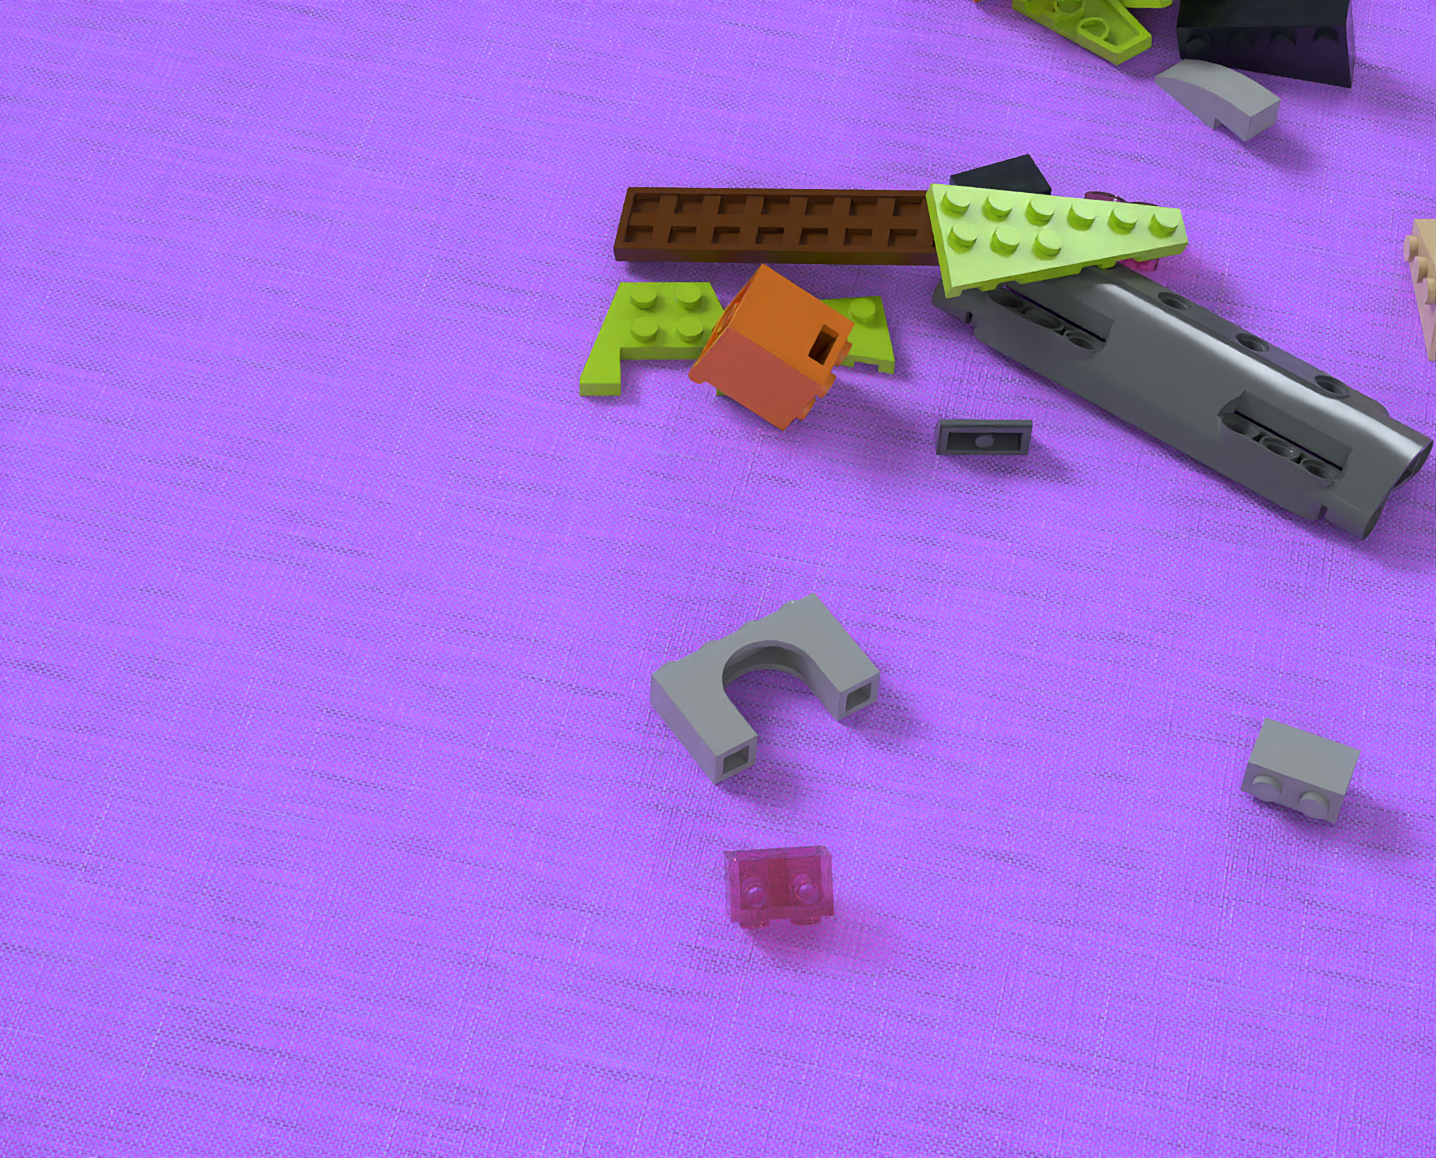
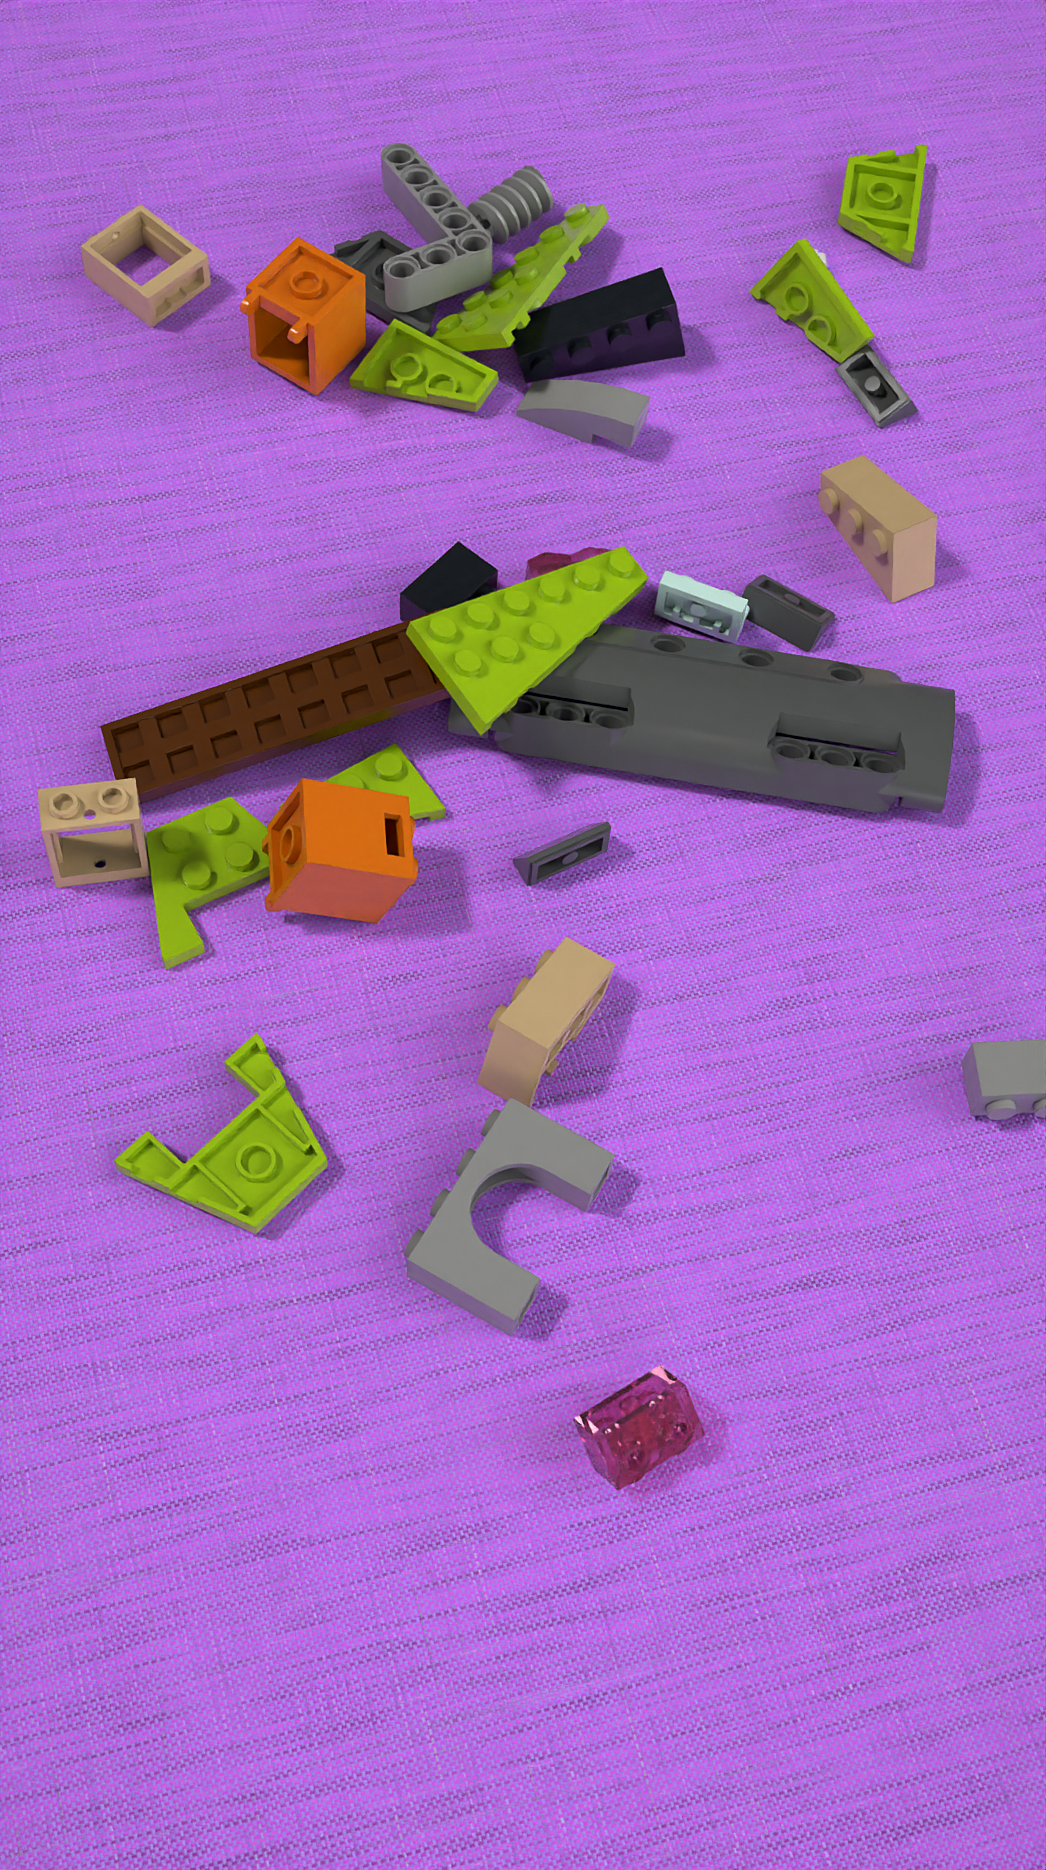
camera: 30 degrees left, 10 degrees up
(547, 279) = (75, 856): none -> tan window
(563, 560) = (251, 1163): none -> lime wing
(881, 548) = (543, 1019): none -> tan wedge
(1230, 288) = (701, 606): none -> light aqua bracket
(1314, 327) = (786, 612): none -> dark grey slope

